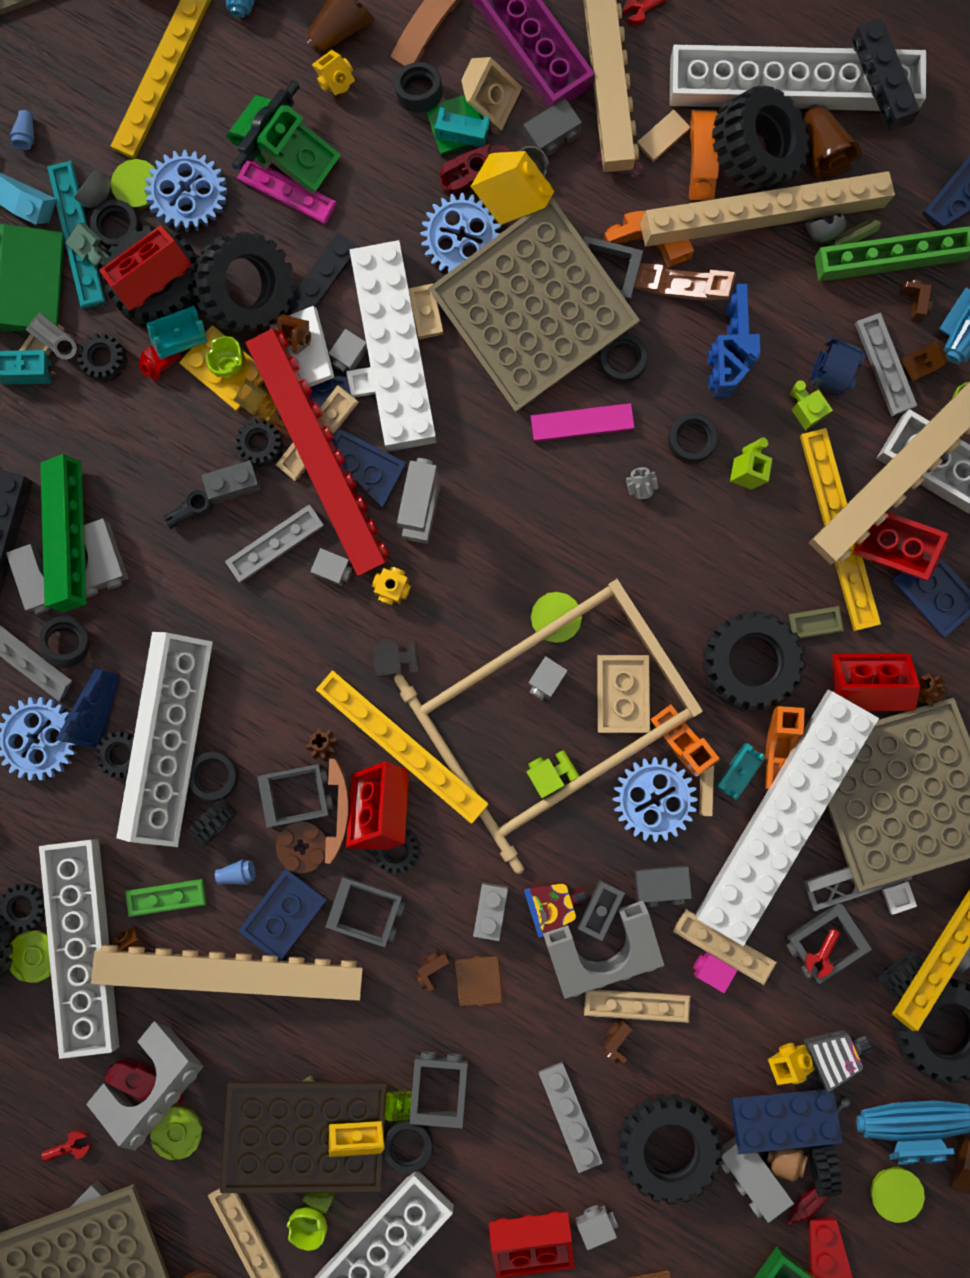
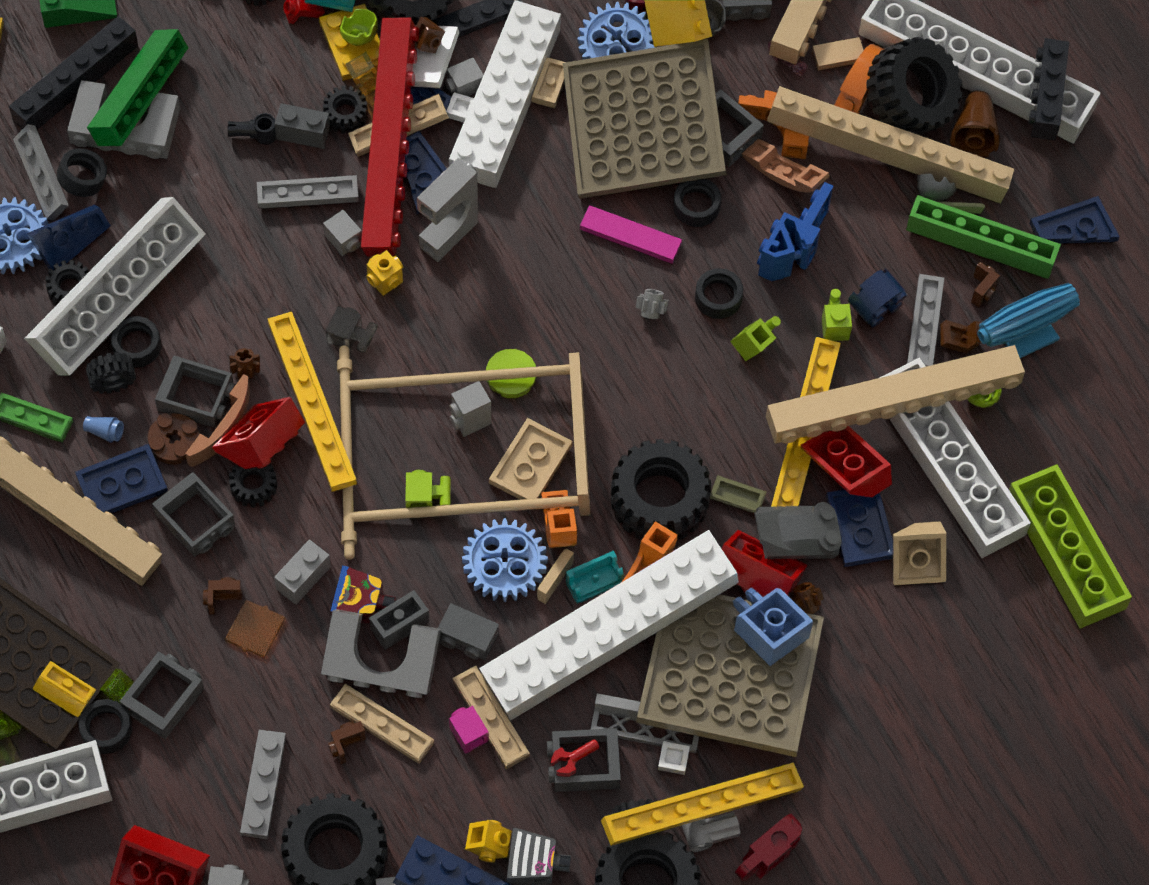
camera: 20 degrees right, 20 degrees down
(892, 632) = (799, 531): none -> dark grey slope
(909, 745) = (771, 624): none -> medium blue hinge

